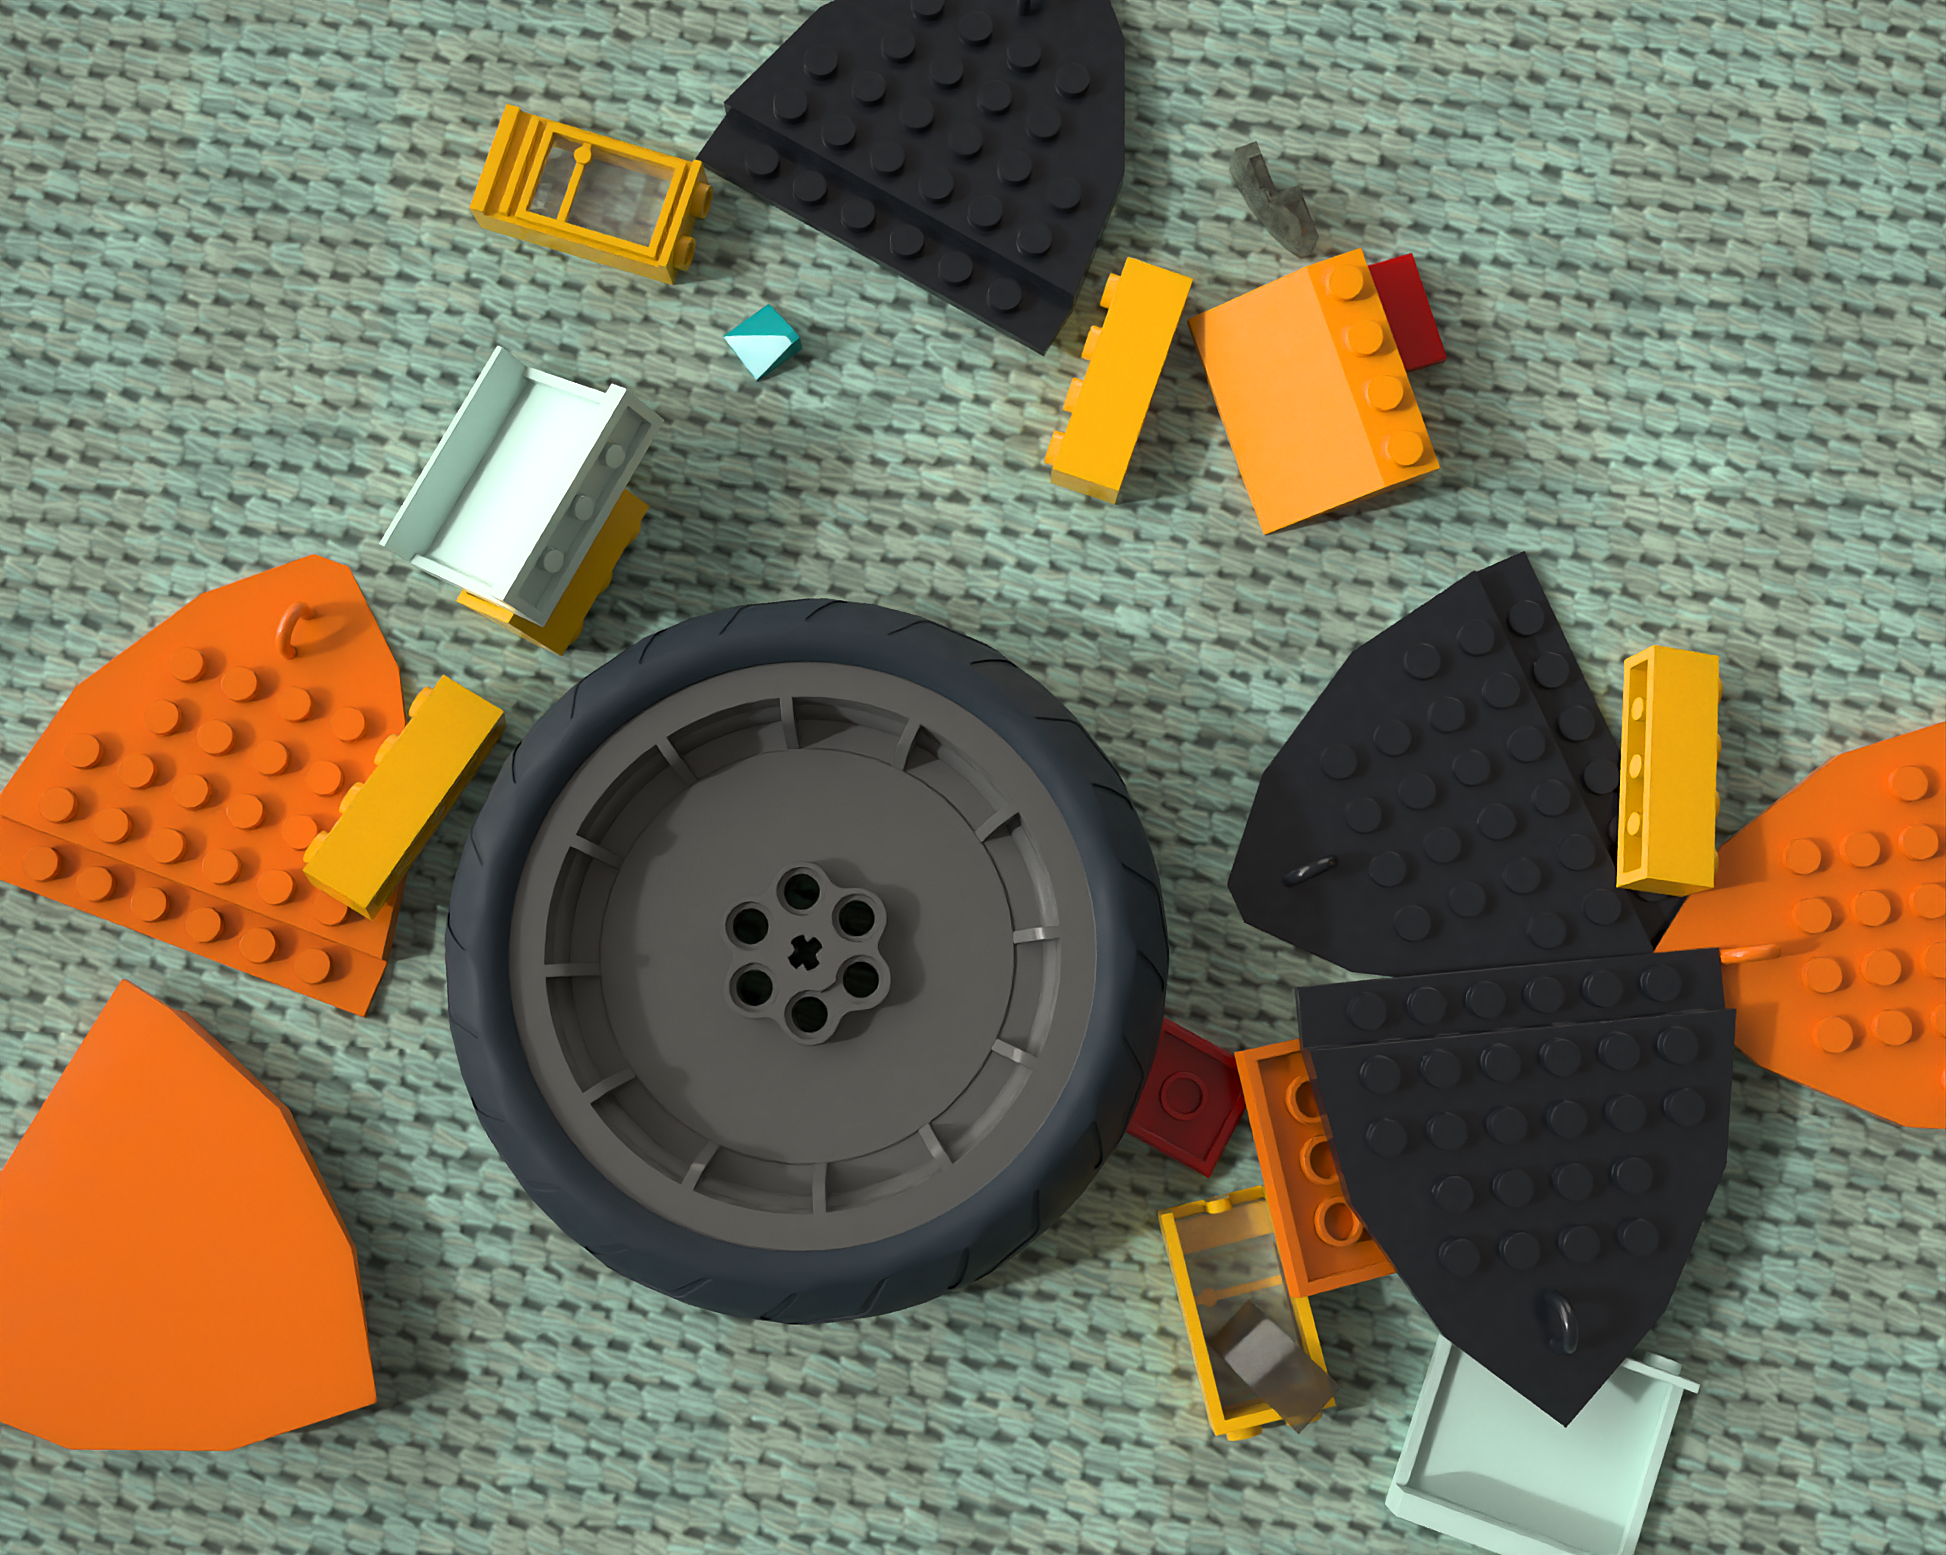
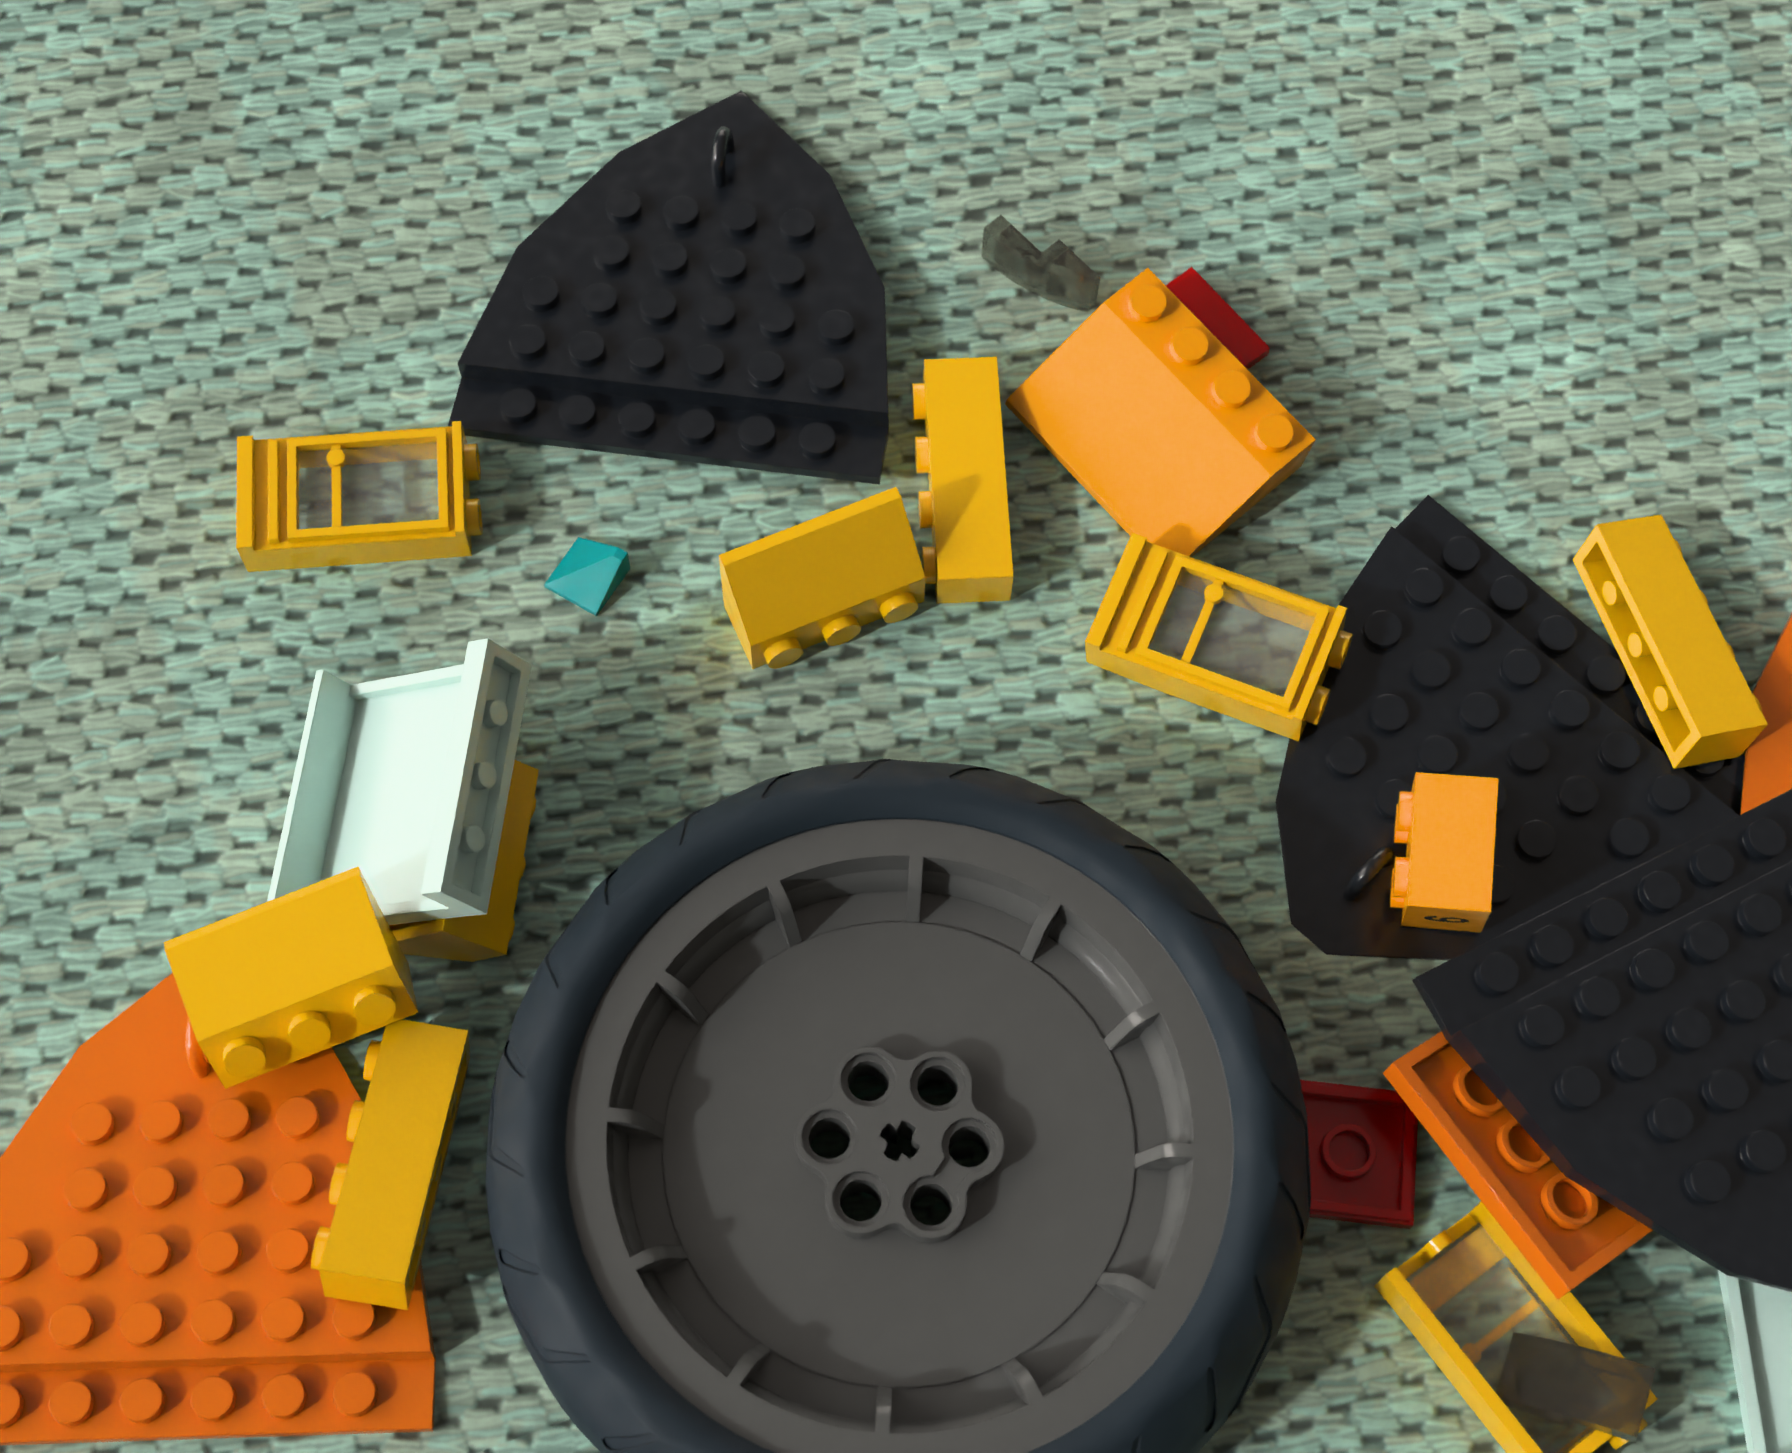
camera: 25 degrees left, 15 degrees down
(373, 614) = (291, 977): none -> yellow slope
(953, 431) = (823, 580): none -> yellow slope
(1274, 613) = (1218, 638): none -> yellow door
(1374, 890) = (1448, 852): none -> light orange brick

